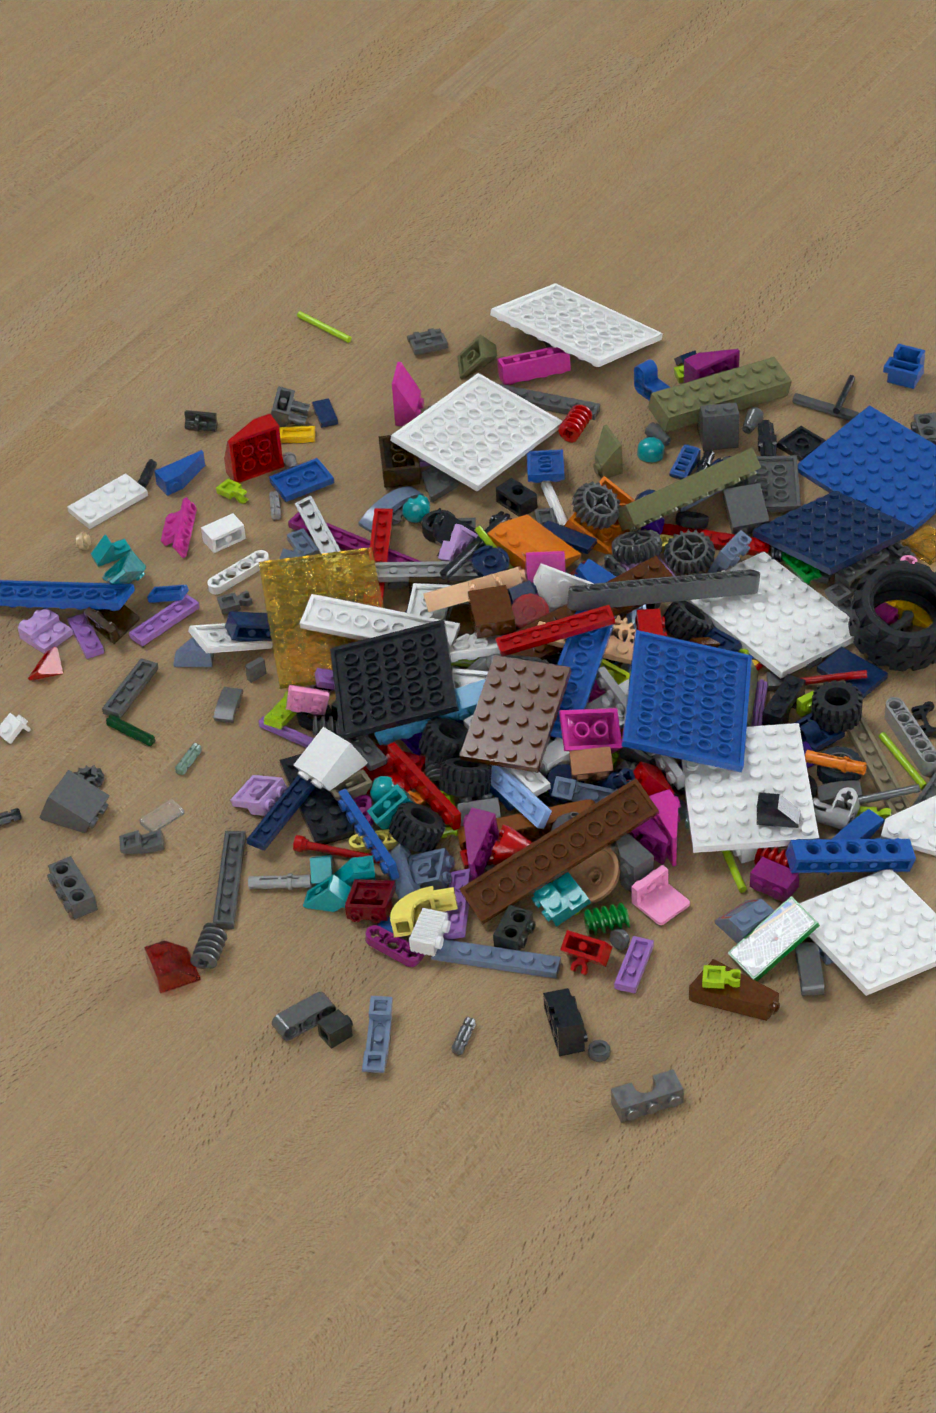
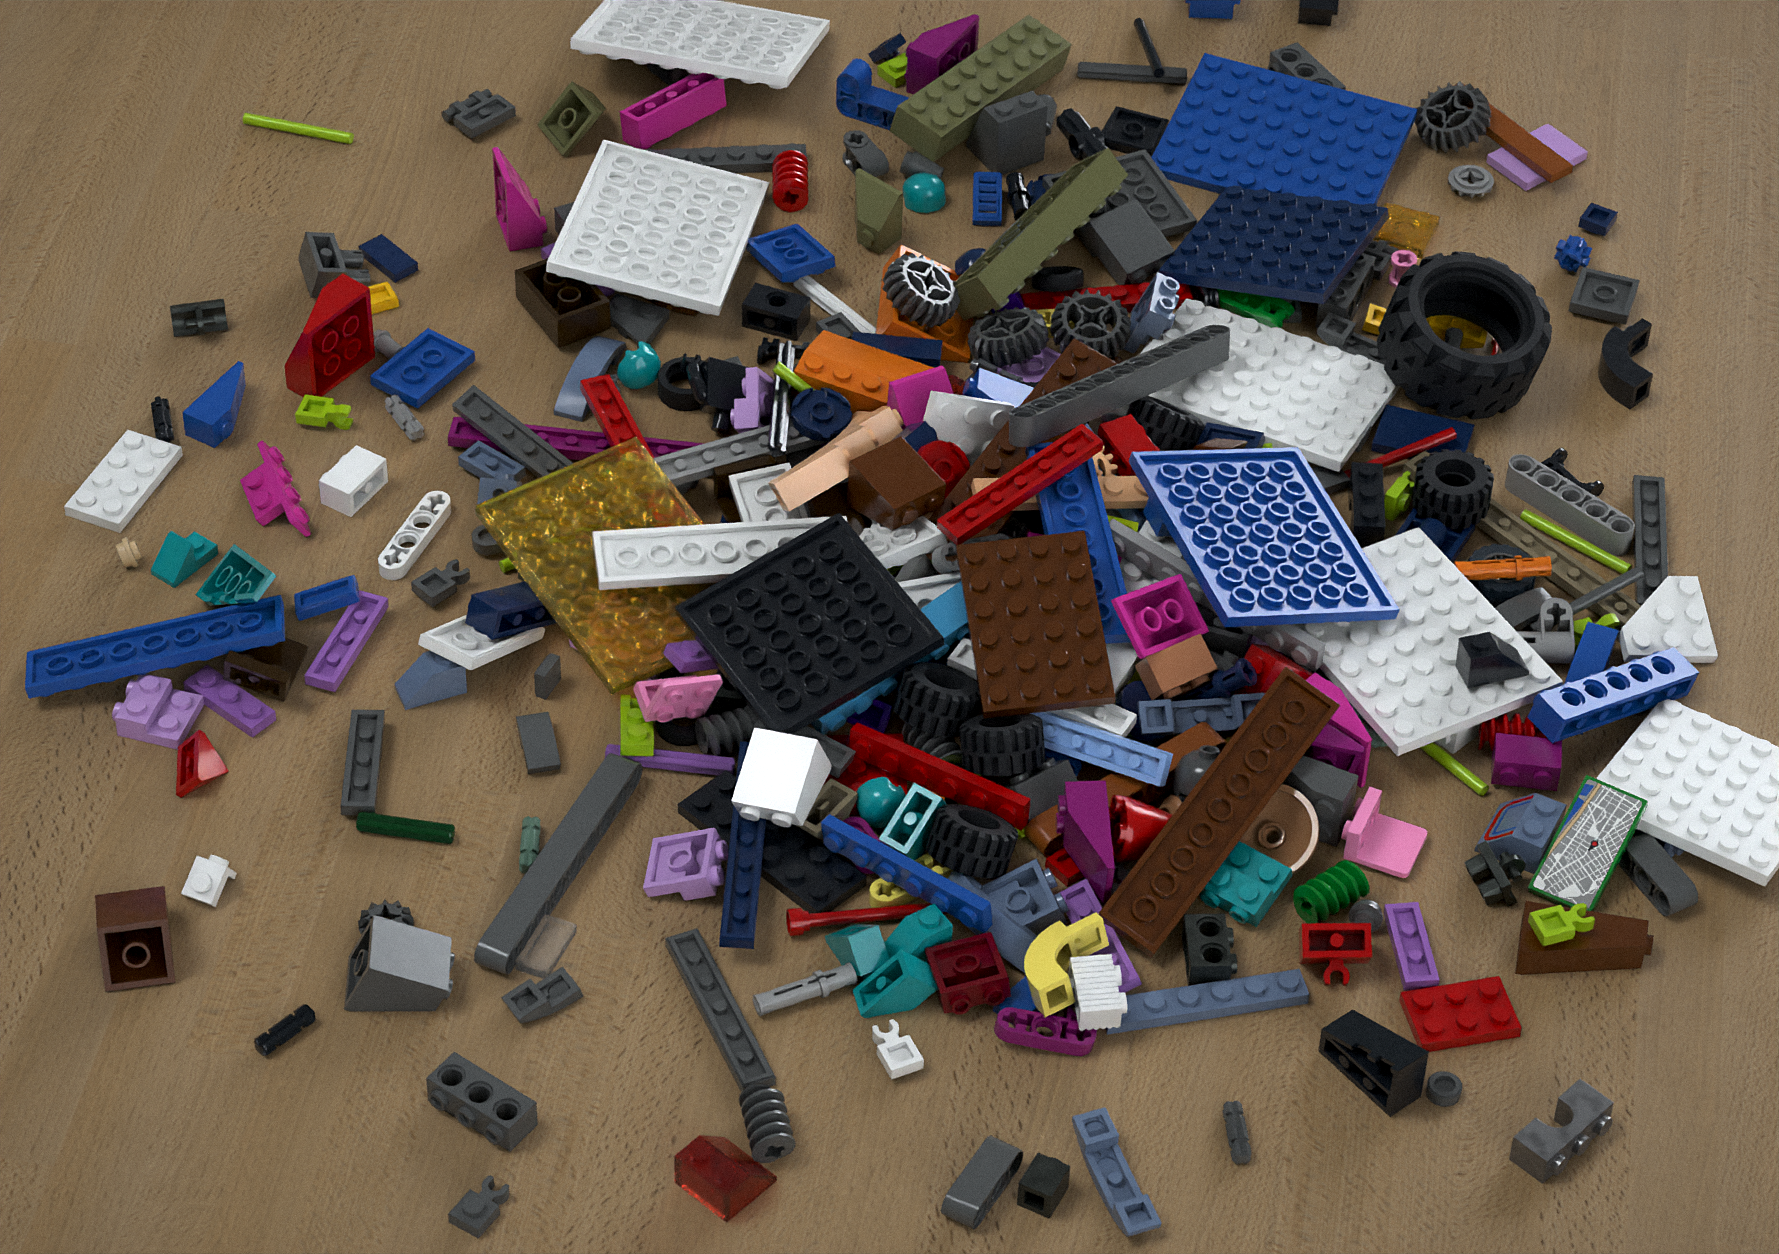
camera: 30 degrees left, 0 degrees up
(38, 944) = (478, 1211): none -> dark grey plate
(196, 771) = (558, 862): none -> dark grey beam
(306, 931) = (896, 1053): none -> white plate
(627, 419) = (863, 154): none -> dark grey piece
(638, 1012) = (1460, 1014): none -> red plate
(713, 937) = (1499, 886): none -> pearl dark grey hips

